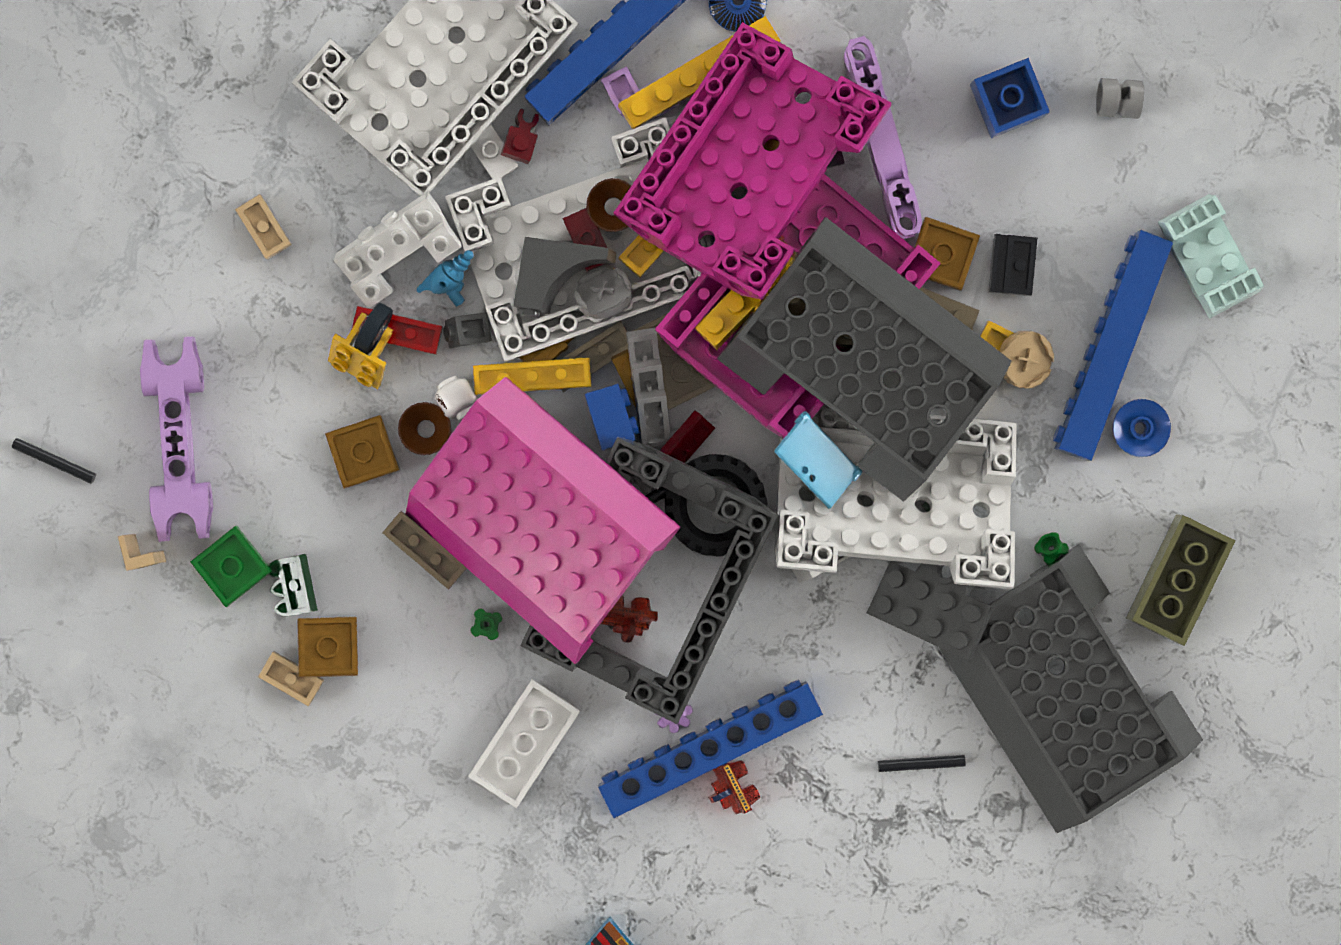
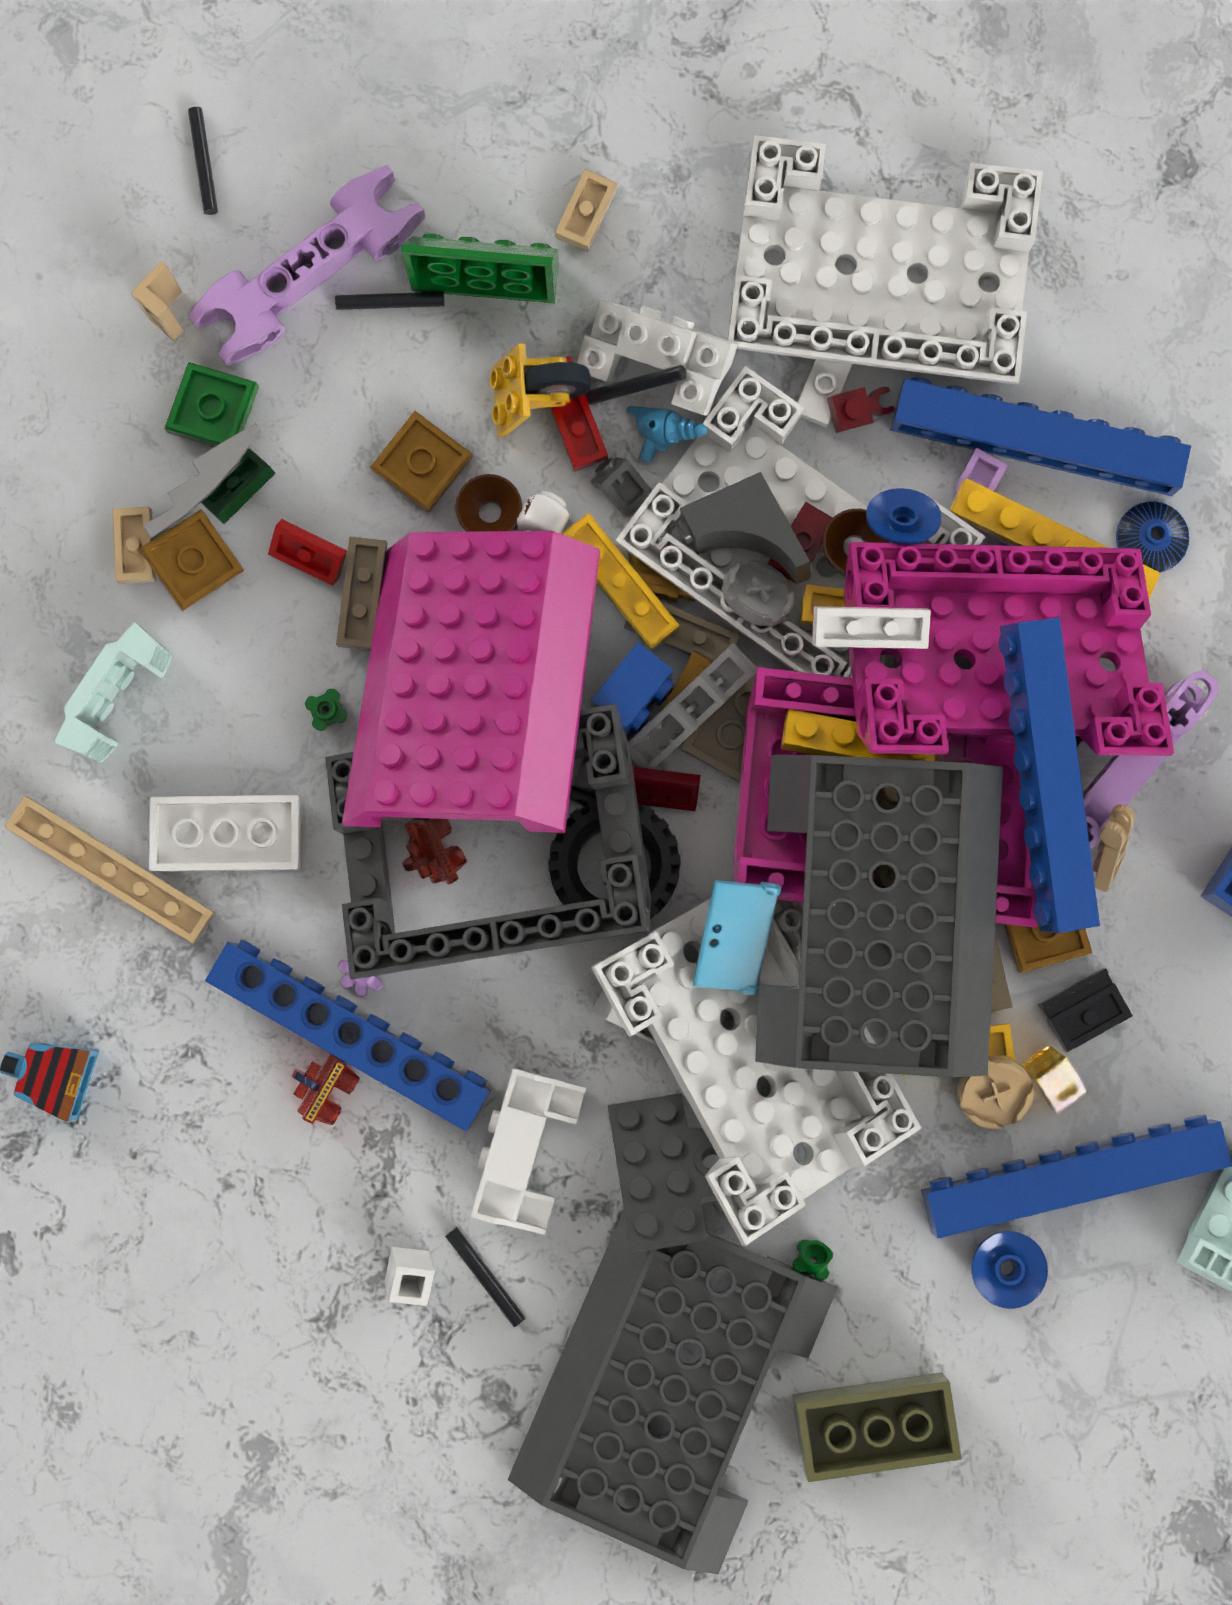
camera: 55 degrees right, 5 degrees down
(236, 399) = (389, 300): none -> black bar
(258, 323) = (481, 268): none -> green slope
(278, 593) = (212, 469): none -> light grey slope
(373, 567) = (307, 552): none -> red plate
(399, 794) = (100, 685): none -> light aqua plate
(409, 275) = (636, 384): none -> black bar
(497, 833) = (109, 870): none -> tan plate
(609, 160) = (903, 516): none -> blue dish
(679, 240) = (871, 627): none -> white plate
(846, 683) = (516, 1138): none -> white bracket
(850, 192) = (1049, 775): none -> blue brick
(889, 811) = (409, 1276): none -> white brick
(922, 177) = (1113, 846): none -> tan hinge
(1042, 315) = (1055, 1078): none -> clear yellow bracket

